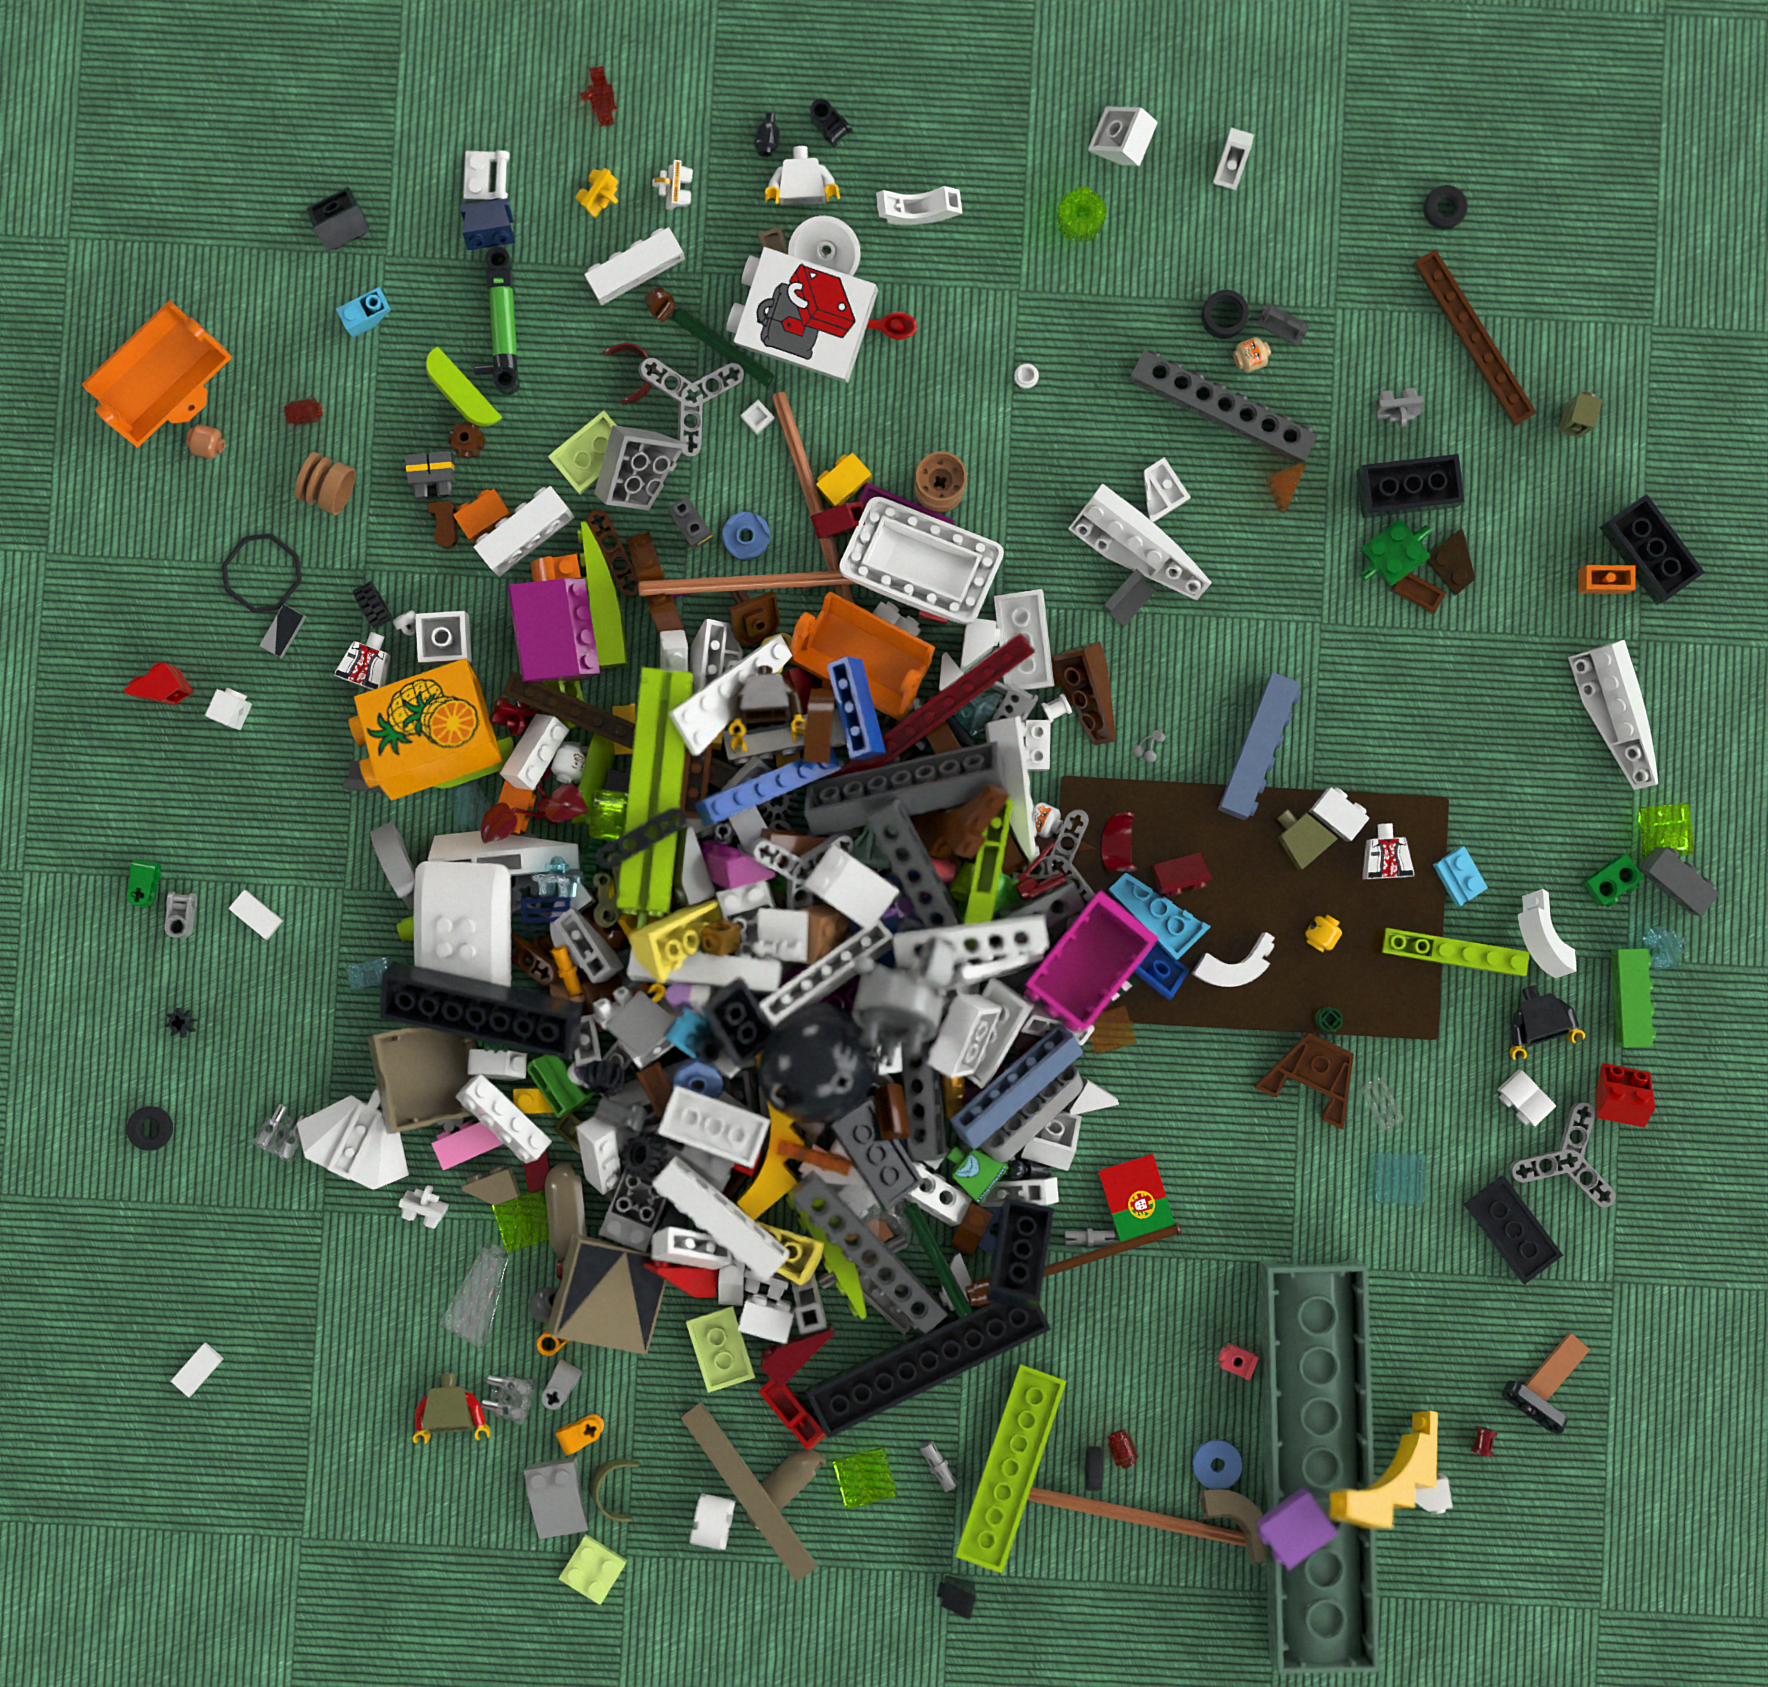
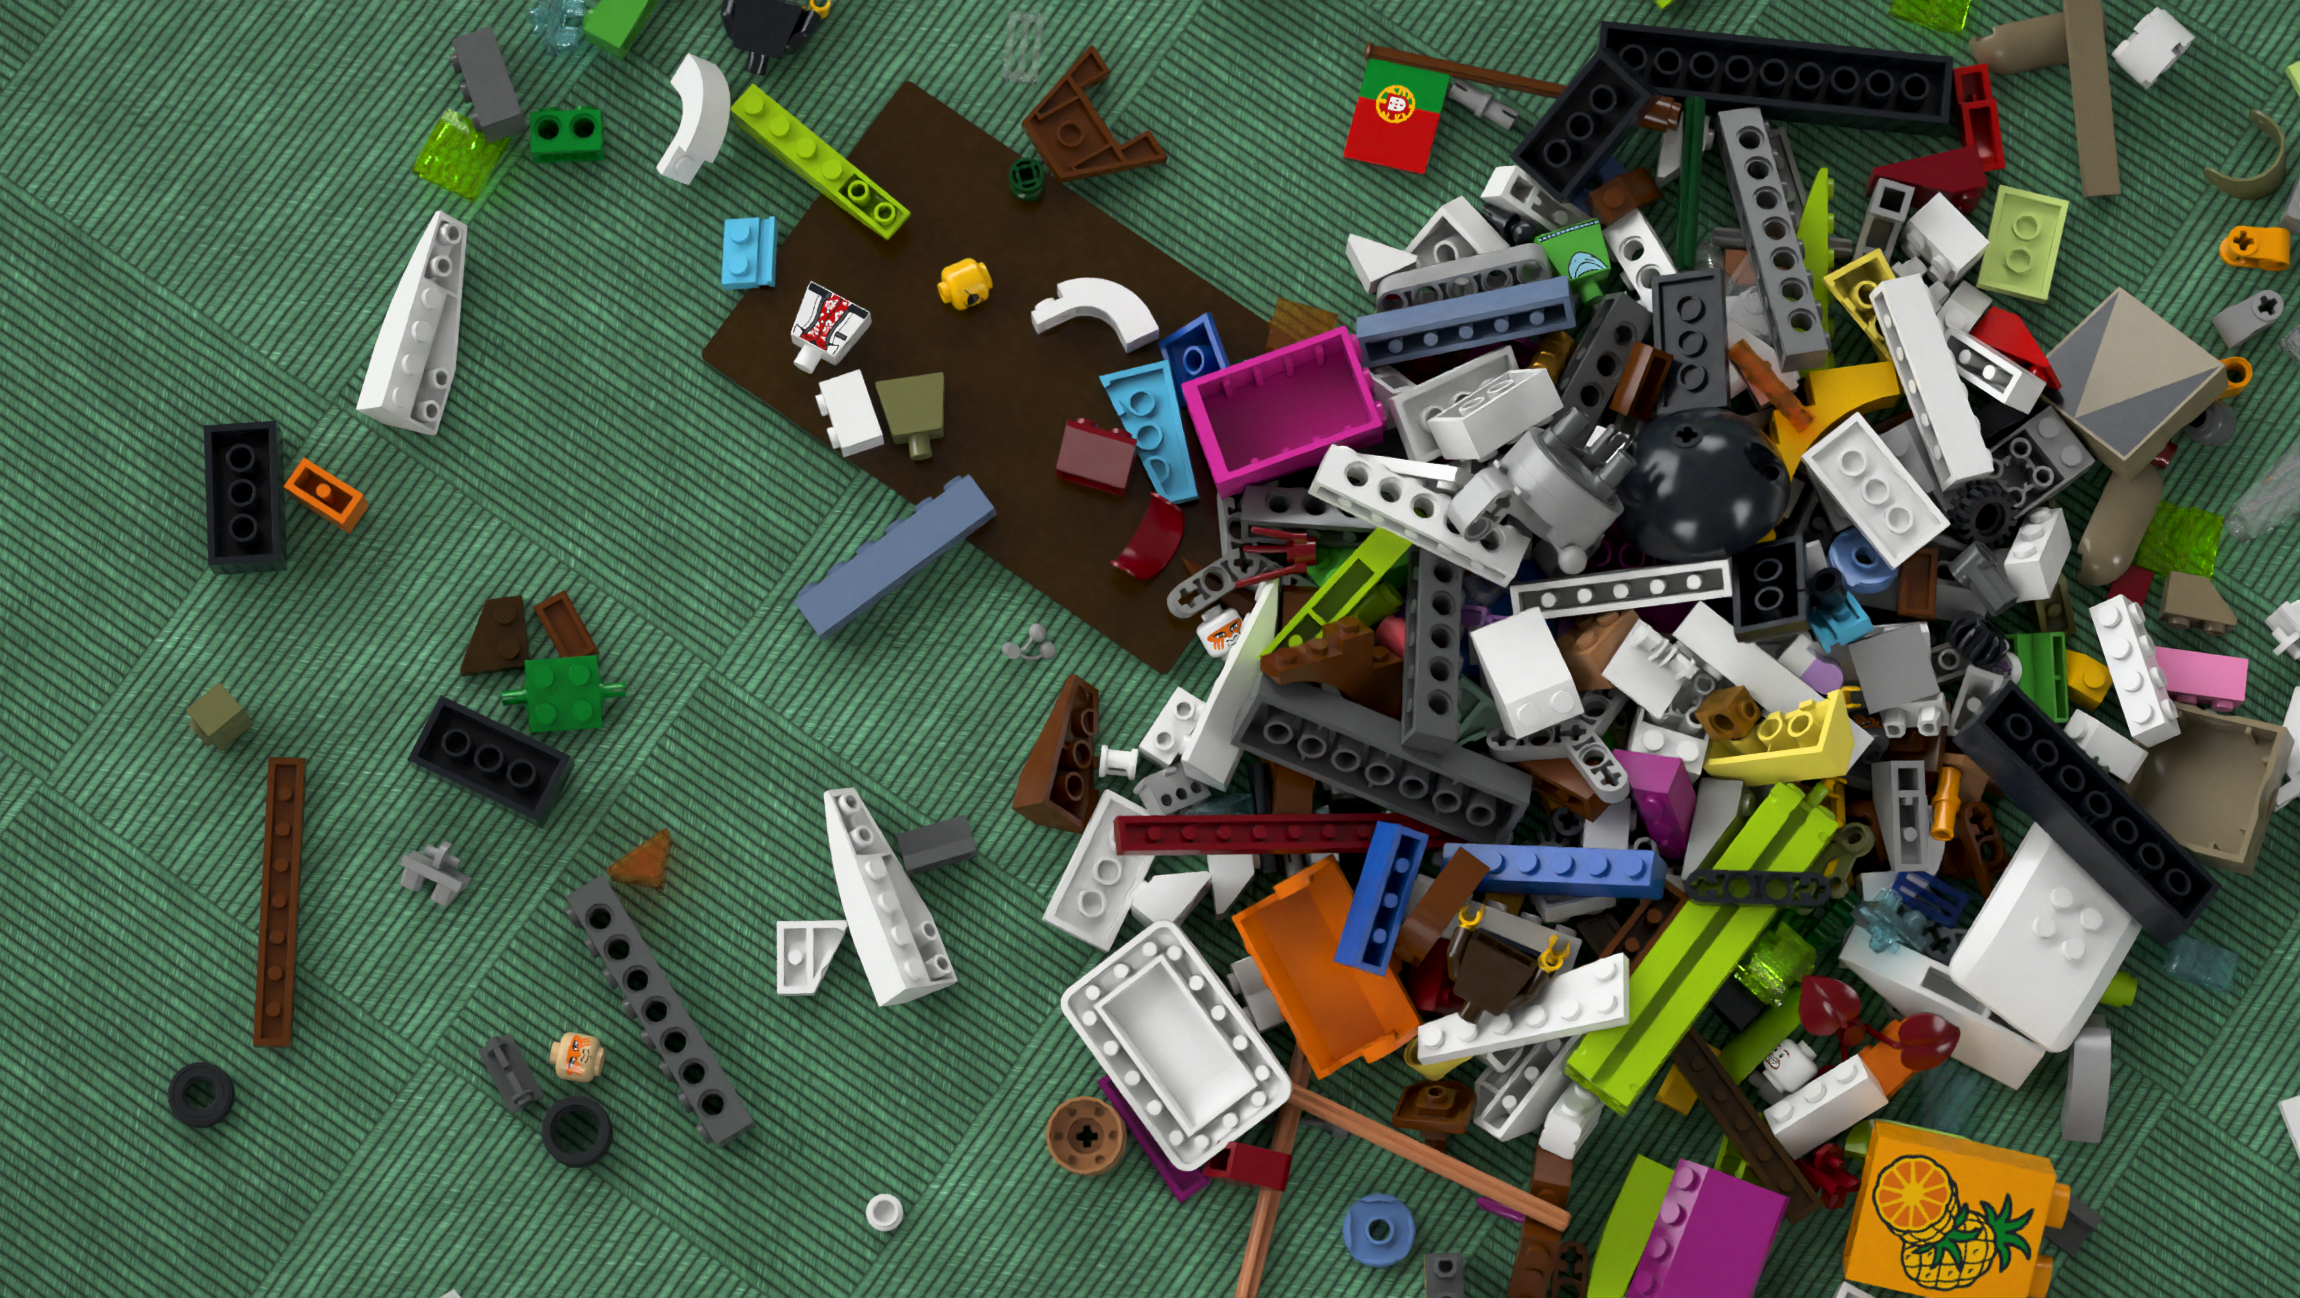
camera: 145 degrees left, 10 degrees down
(843, 480) = (1209, 1221): yellow brick -> none

